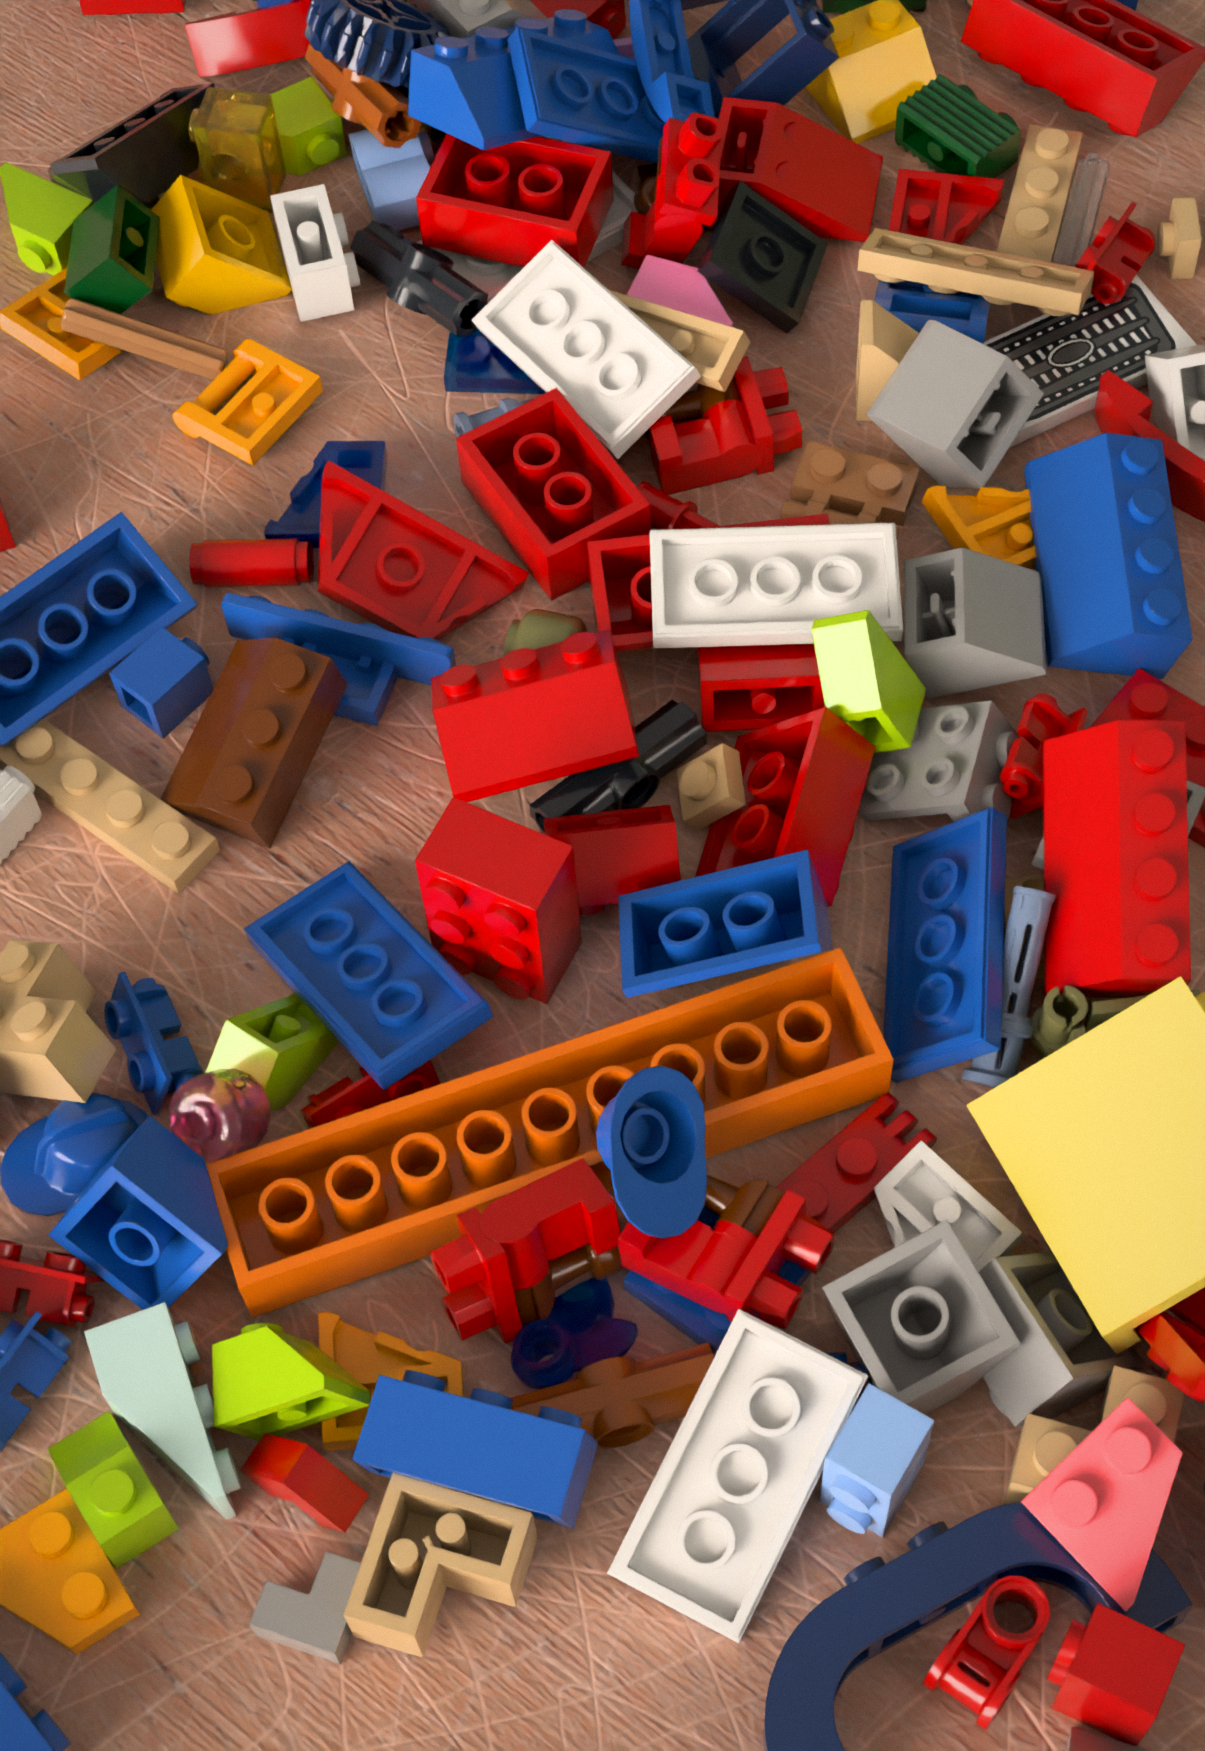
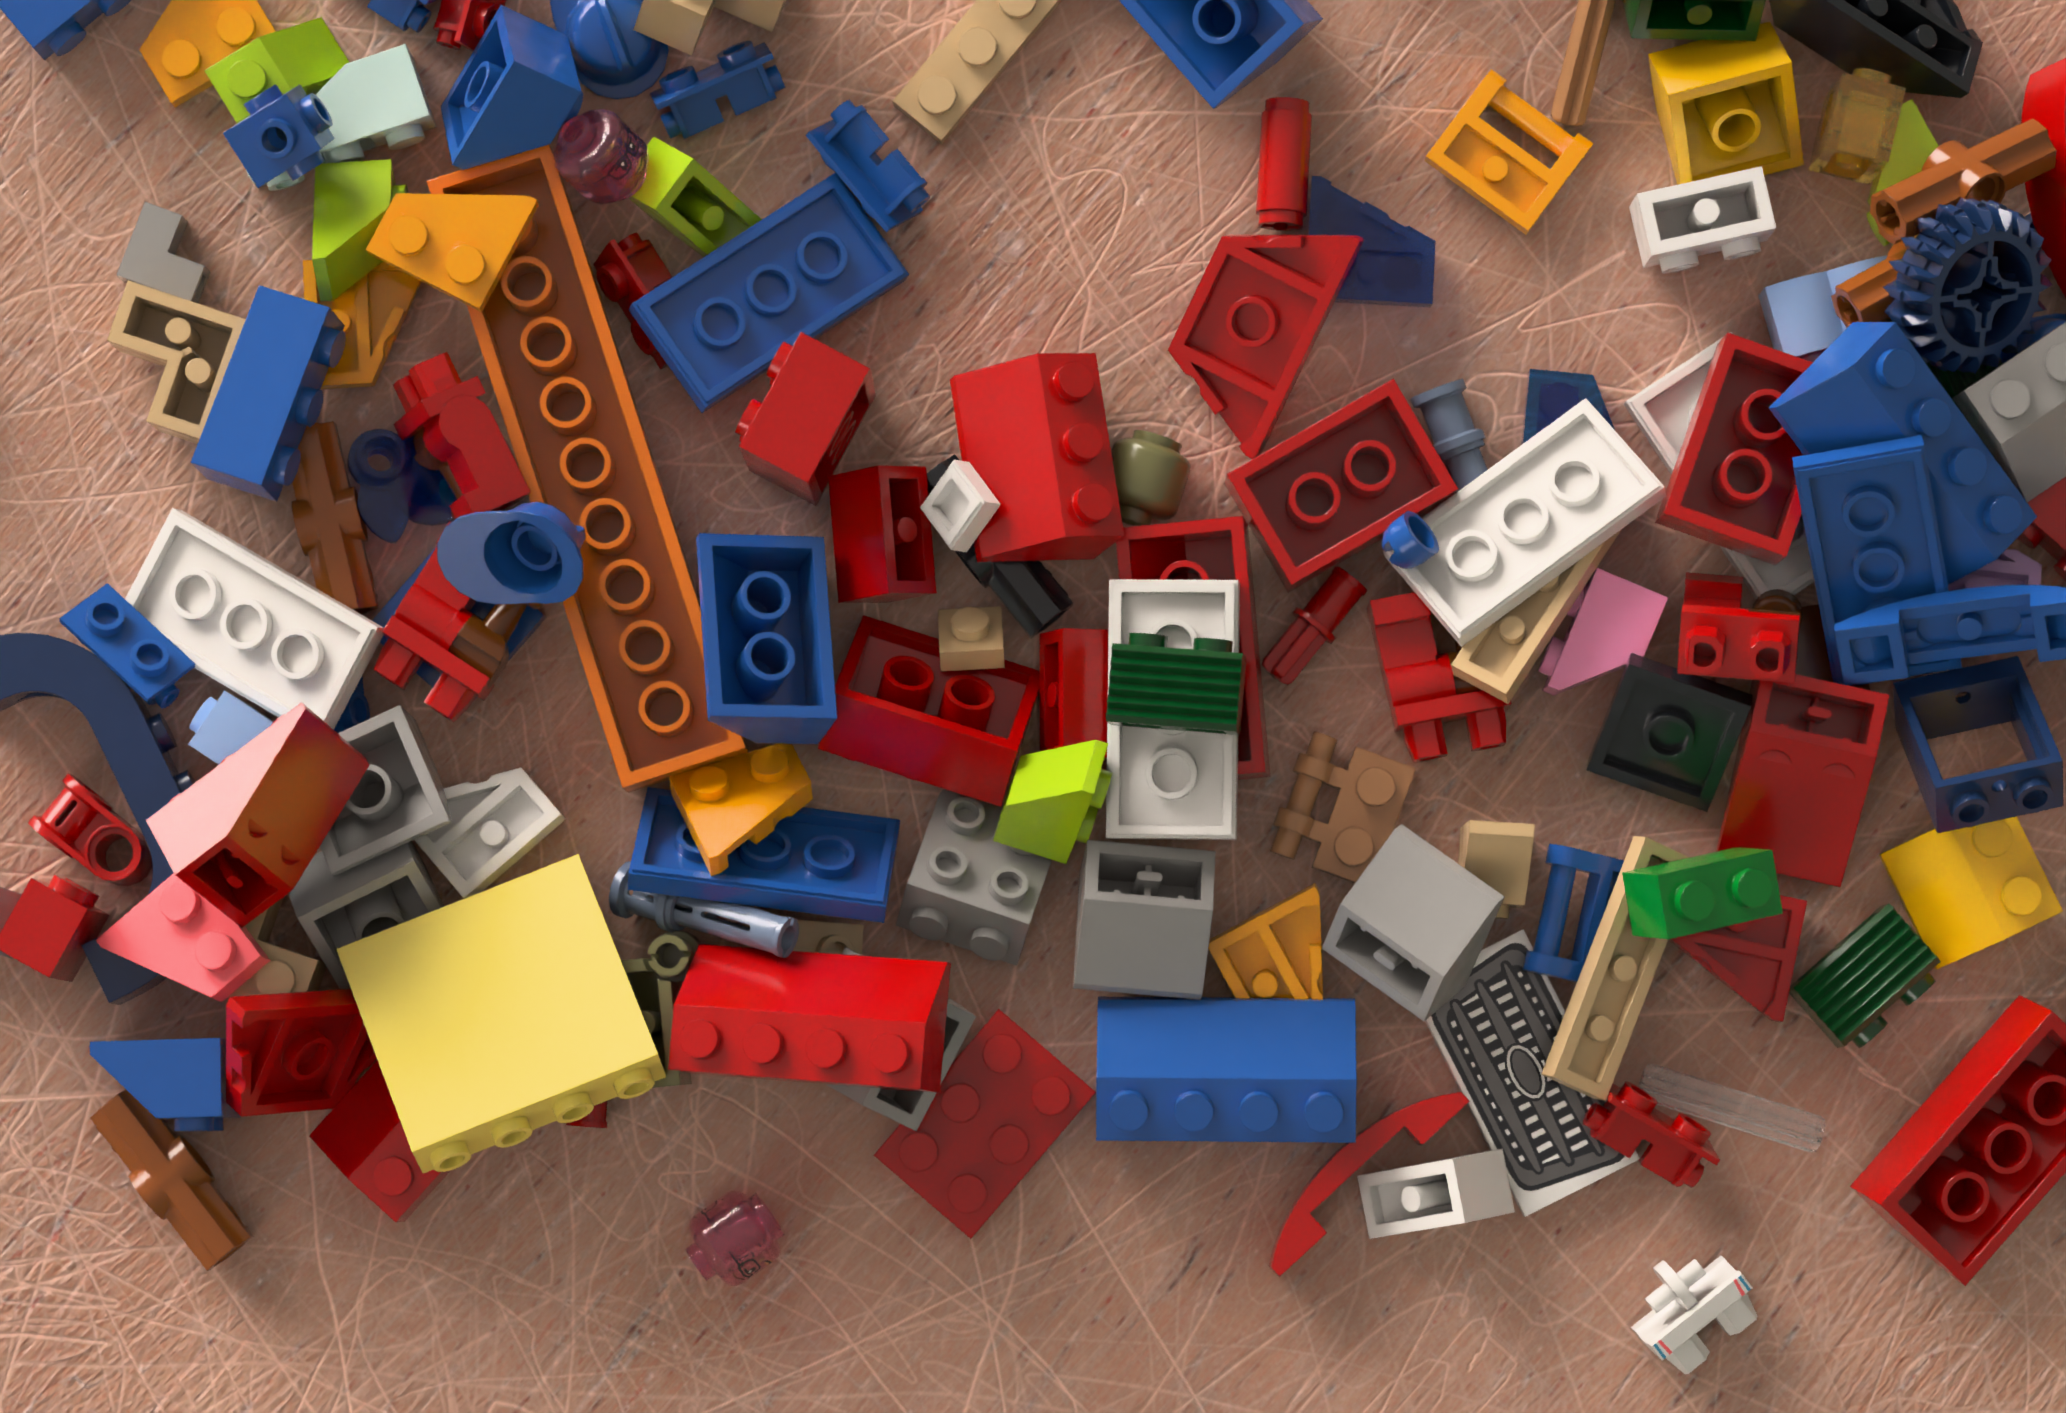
camera: 90 degrees right, 25 degrees up
(163, 681) = (1131, 78): blue brick -> none
(175, 1460) = (264, 145): none -> blue brick
(220, 908) = (886, 188): none -> blue hinge
(256, 738) = (1042, 171): reddish brown slope -> none
(289, 61) = (1965, 173): none -> dark orange piece
(307, 1250) = (453, 240): none -> light orange wing
(307, 1479) = (269, 242): red piece -> none
(363, 652) = (1134, 250): blue bracket -> none
(419, 277) = (1663, 340): black piece -> none
(584, 769) = (960, 505): none -> white tile
(606, 410) = (1410, 540): none -> blue hinge
(758, 555) = (1176, 686): none -> dark green brick
(768, 1612) = (129, 645): none -> blue hinge
(848, 1167) = (547, 745): red hinge -> none
(899, 967) = (740, 799): none -> light orange wing
(906, 201) = (1702, 893): none -> green brick
(985, 1406) = (260, 814): none -> red slope
(1024, 765) = (1003, 988): red hinge -> none
(1040, 193) = (1754, 1060): tan plate -> none
(1181, 238) = (1685, 1214): tan plate -> none

